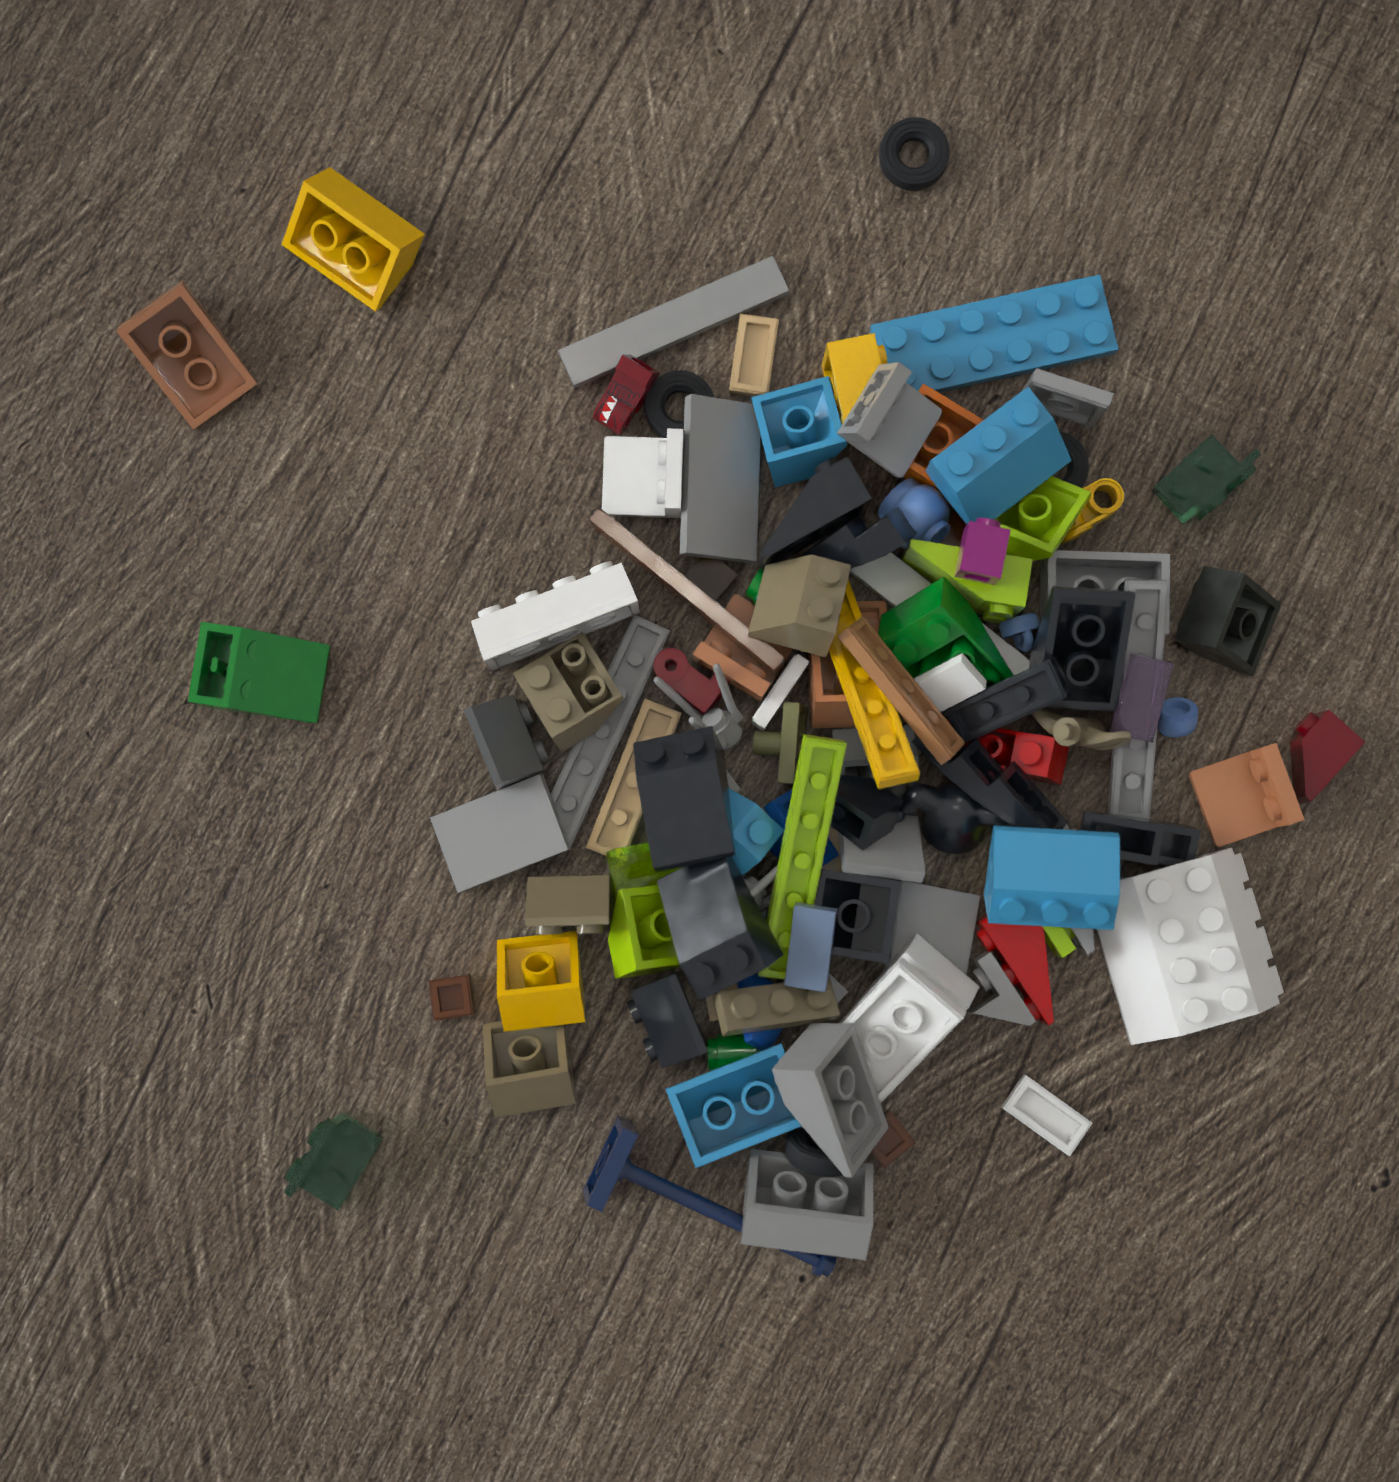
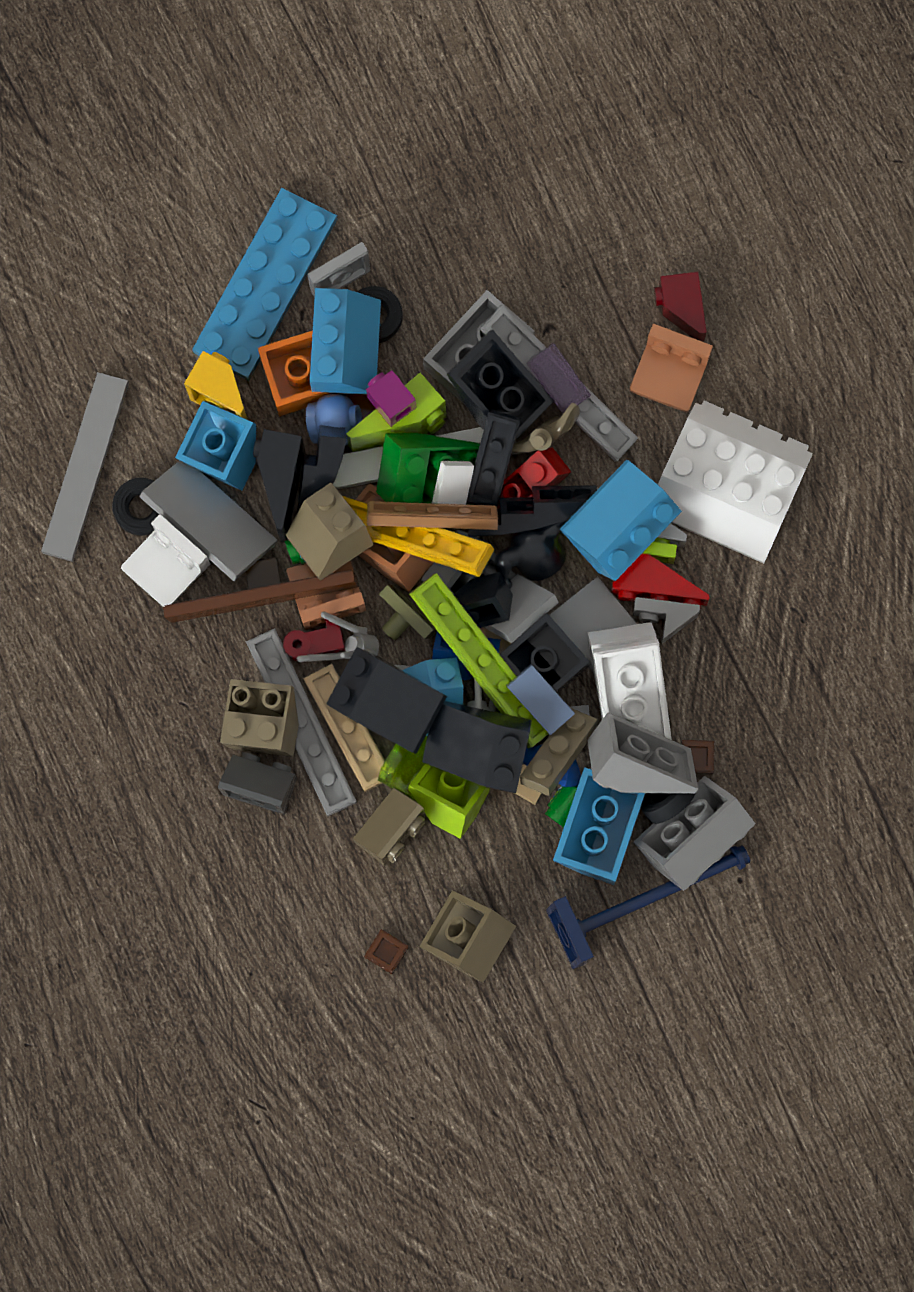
camera: 45 degrees left, 5 degrees down
(258, 673) = (83, 901): green slope -> none
(335, 1160) = (427, 1105): clear green bracket -> none
(500, 833) = (310, 835): light grey tile -> none
(540, 981) = (423, 886): yellow slope -> none
(554, 616) = (206, 688): white slope -> none
(625, 393) = (105, 532): dark red leg -> none
(668, 1021) = (512, 826): black slope -> none
(753, 355) = (148, 435): tan tile -> none
(779, 692) = (370, 593): white tile -> none
(890, 419) = (263, 385): light grey bracket -> none
(914, 130) = (117, 252): black tyre -> none
(1021, 630) = (455, 416): medium blue tile -> none
(1043, 518) = (401, 345): lime slope -> none
(1046, 1115) = (763, 648): white tile -> none
(1092, 513) = (416, 322): yellow piece -> none
(1146, 839) = (647, 447): black slope -> none
(1178, 717) = (590, 368): medium blue tile -> none
(1199, 480) = (457, 232): clear green bracket -> none
(1228, 619) = (557, 289): pearl dark grey slope -> none

